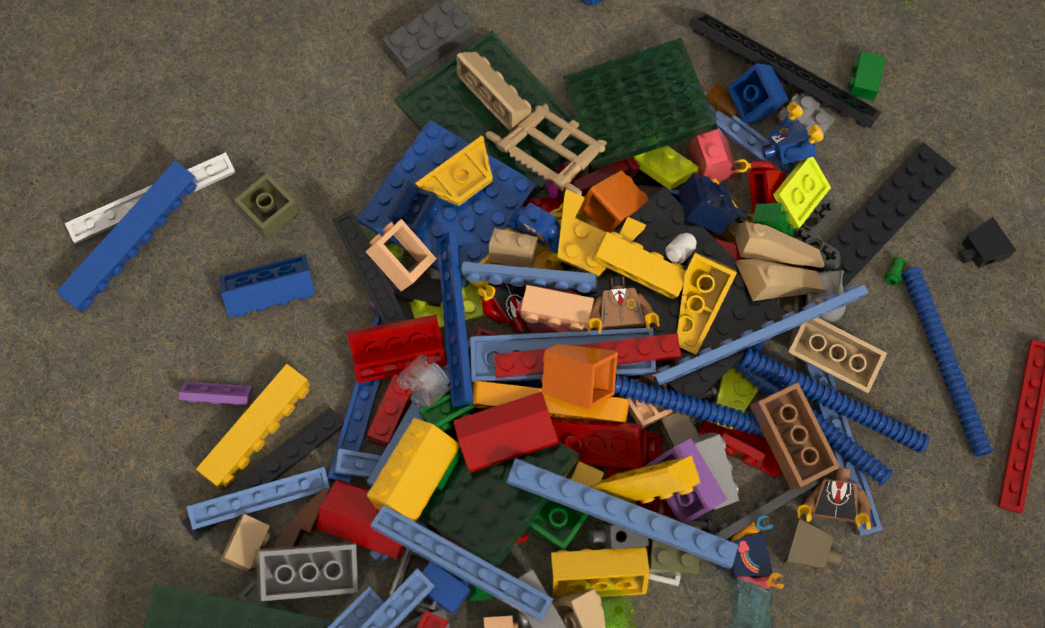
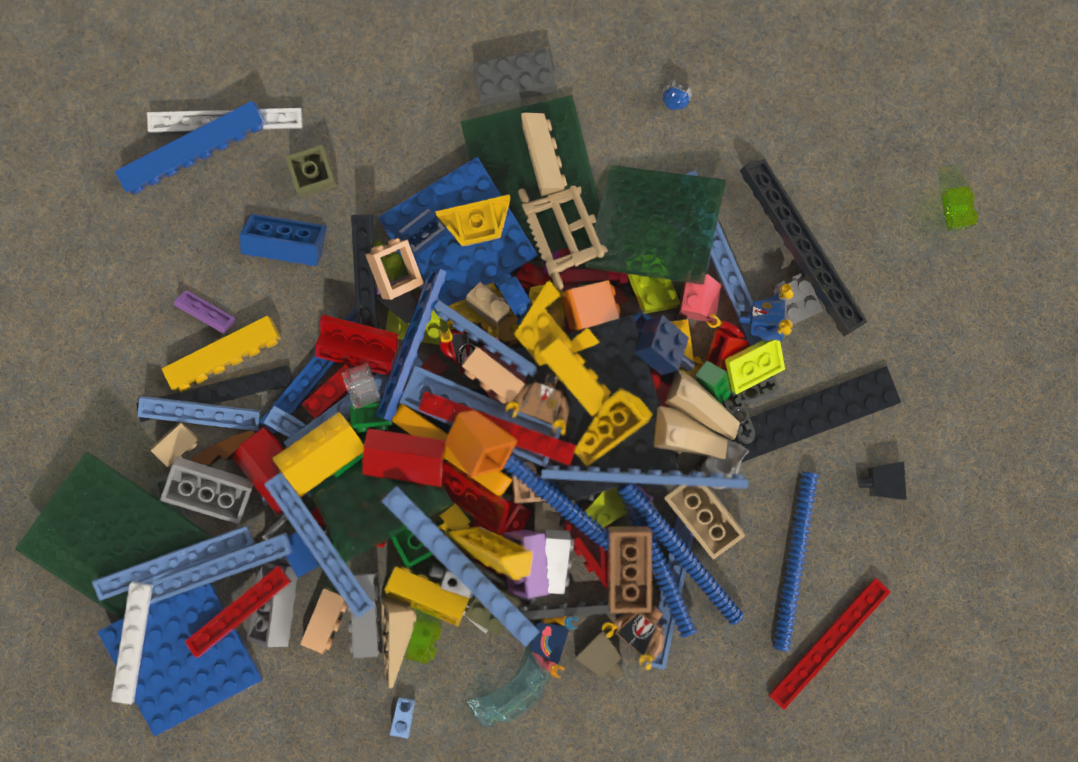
camera: 35 degrees right, 15 degrees up
(681, 248) = (616, 376): white brick -> none
(721, 100) = (736, 250): clear orange piece -> none
(757, 93) = (765, 260): blue brick -> none
(867, 75) = (872, 285): green brick -> none
(893, 276) = (796, 467): green pin -> none

